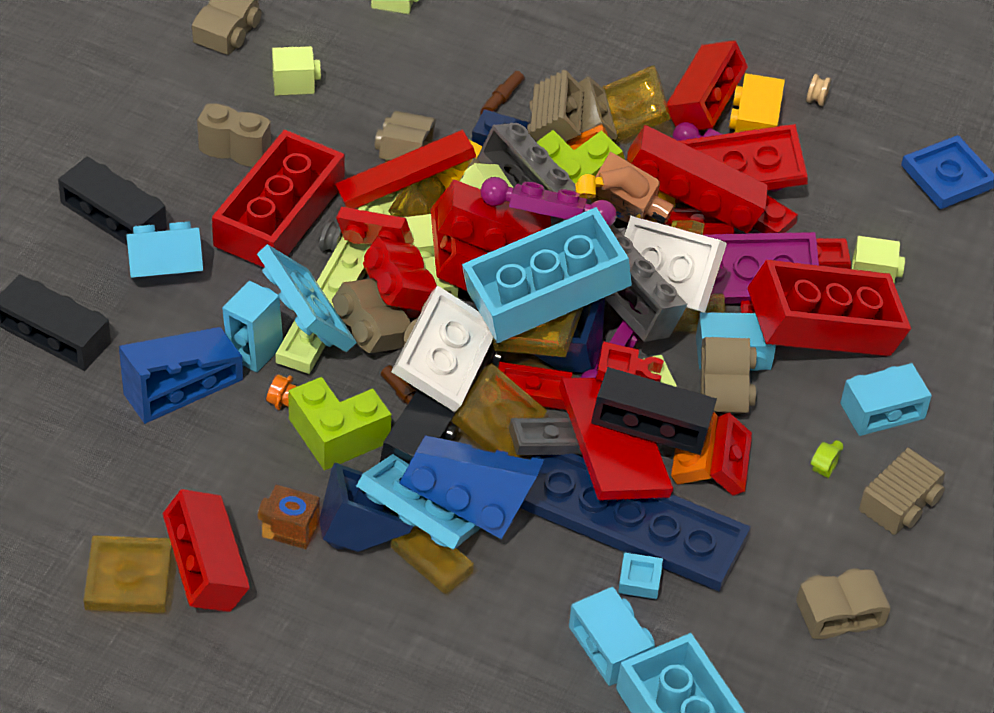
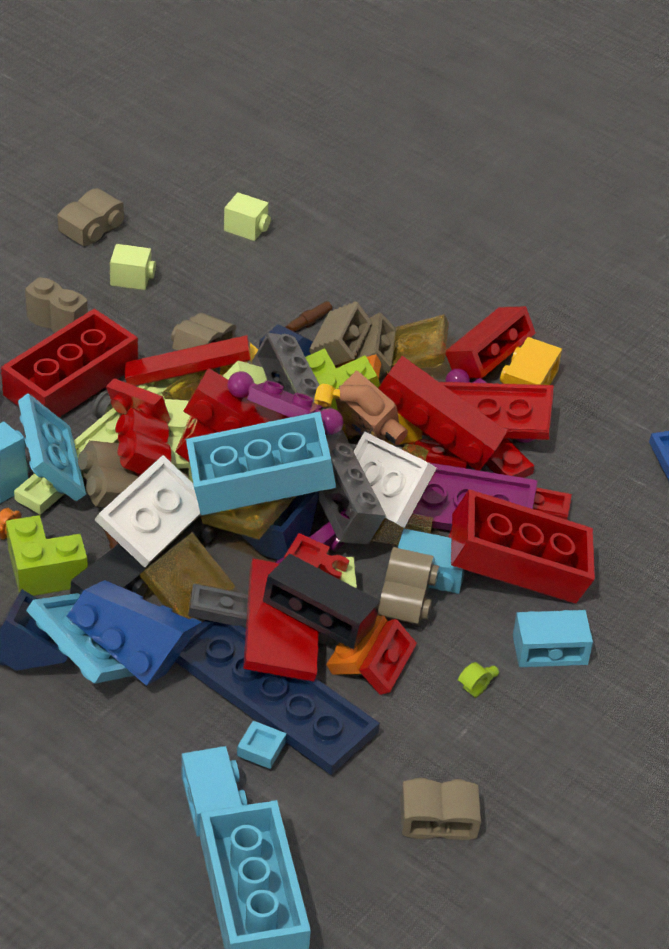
camera: 15 degrees right, 5 degrees down
(436, 563) = (81, 695): clear yellow plate -> none
(538, 383) = (232, 559): red plate -> none
(818, 90) = (594, 364): tan bush -> none
(878, 256) = (594, 514): yellowish green brick -> none
(902, 491) = (536, 722): dark tan brick -> none

